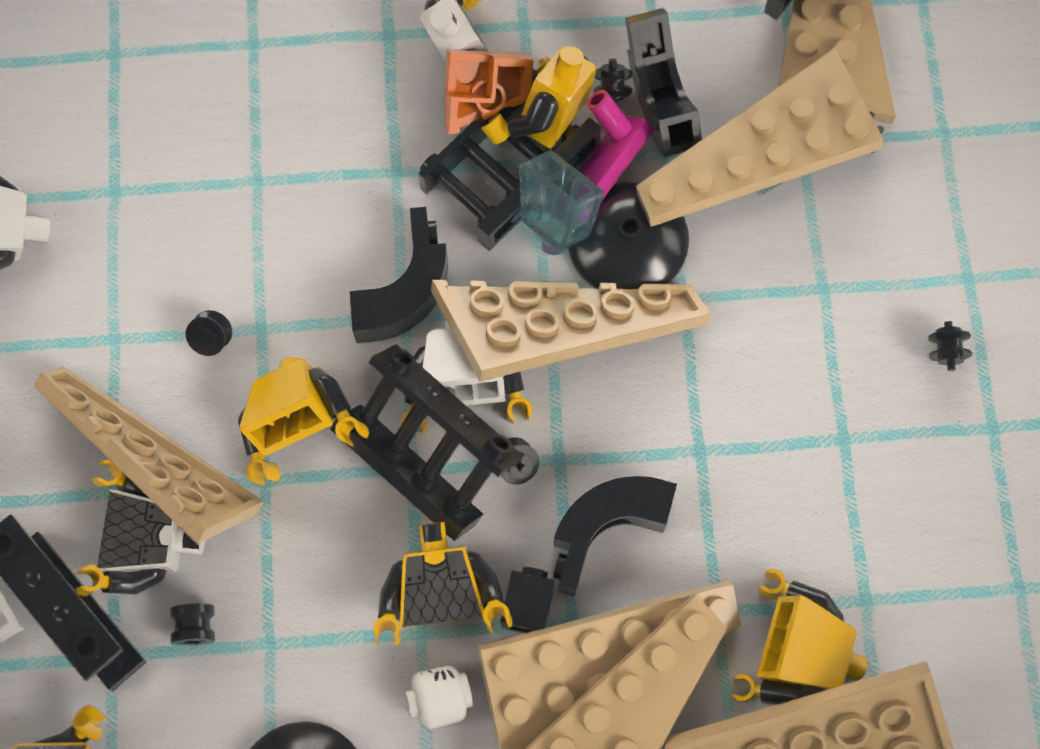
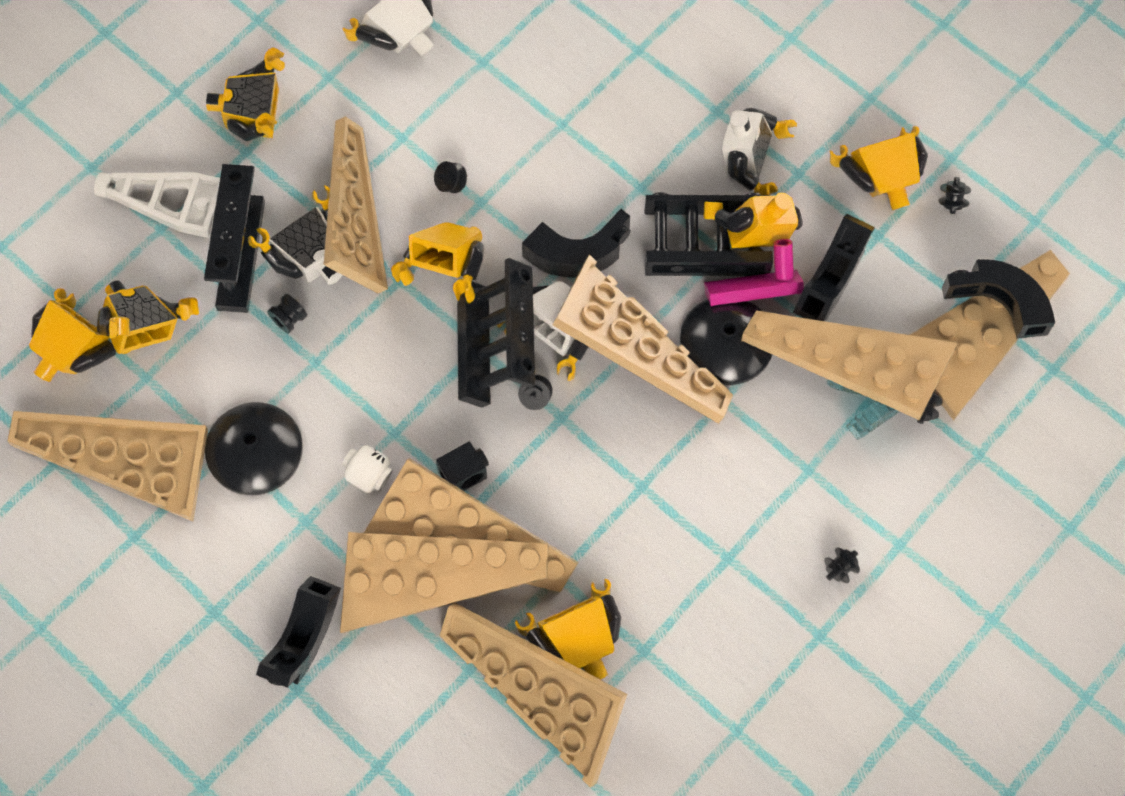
camera: 45 degrees right, 5 degrees down
(438, 587) = (424, 412): torso -> none
(483, 84) = (729, 178): orange slope -> none
(557, 201) = (700, 276): clear light blue torso -> none
(613, 80) = (809, 248): black wheel -> none
(614, 503) = (549, 460): black arch -> none
(830, 191) = (870, 419): none -> clear light blue beam

